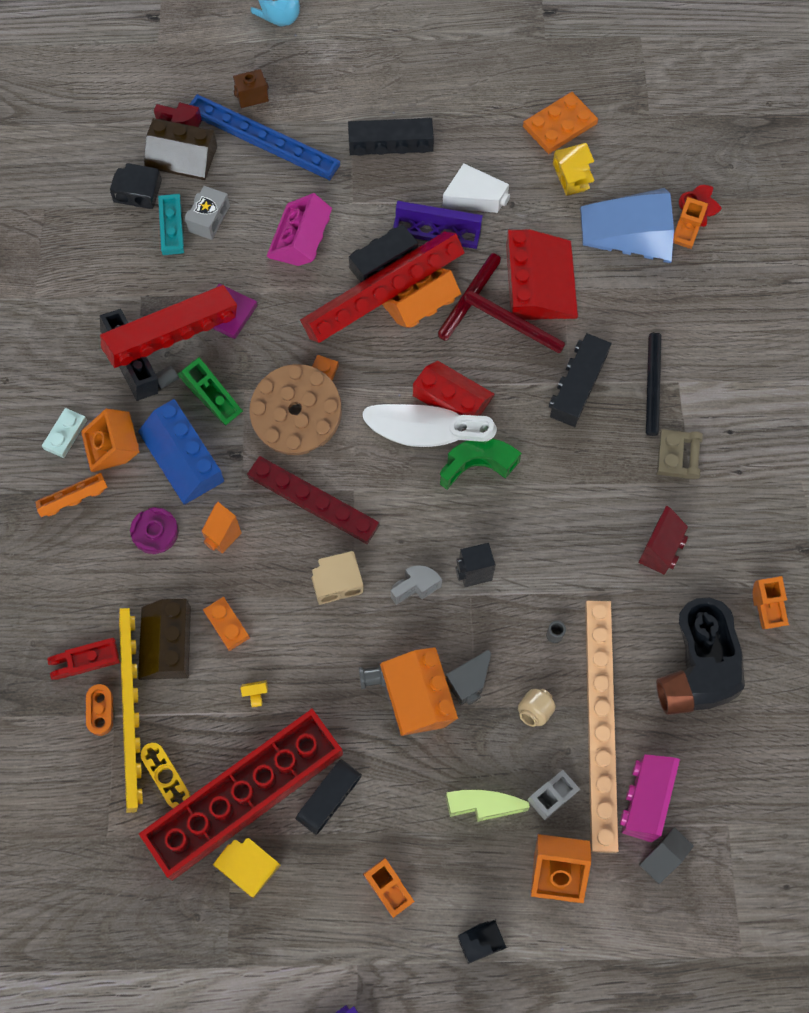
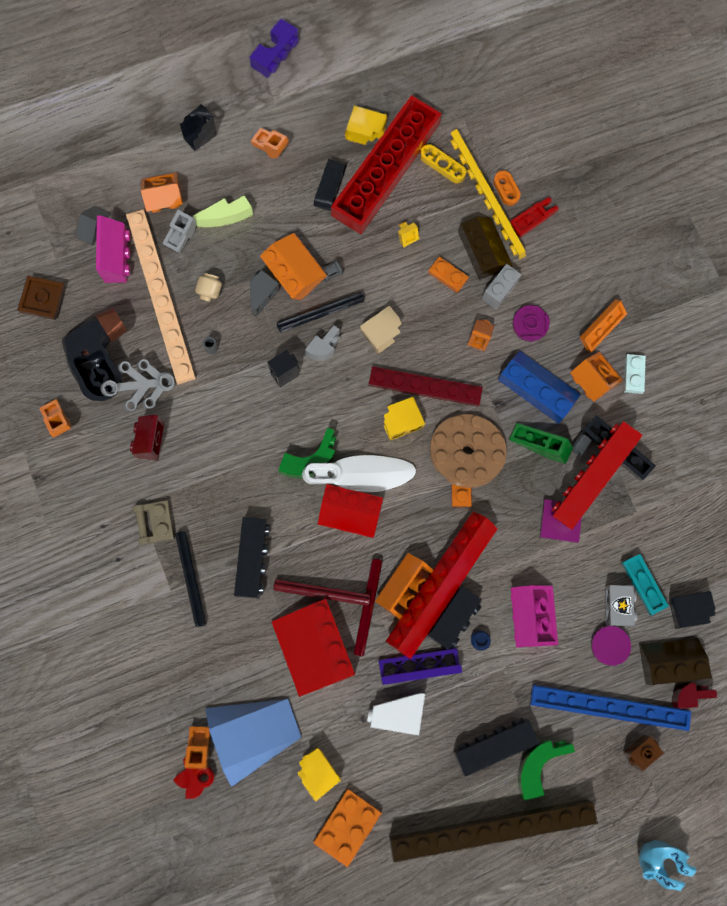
camera: 155 degrees right, 10 degrees up
(169, 579) = (501, 286): none -> light grey brick
(237, 183) = (611, 645): none -> magenta tile
(354, 467) = (403, 419): none -> yellow piece
(364, 108) = (532, 763): none -> green arch
(364, 229) = (480, 640): none -> dark blue plate
(404, 630) = (320, 311): none -> black axle
(423, 75) = (492, 830): none -> dark brown brick
(658, 604) = (141, 384): none -> light grey plant
(758, 770) = (41, 297): none -> reddish brown plate

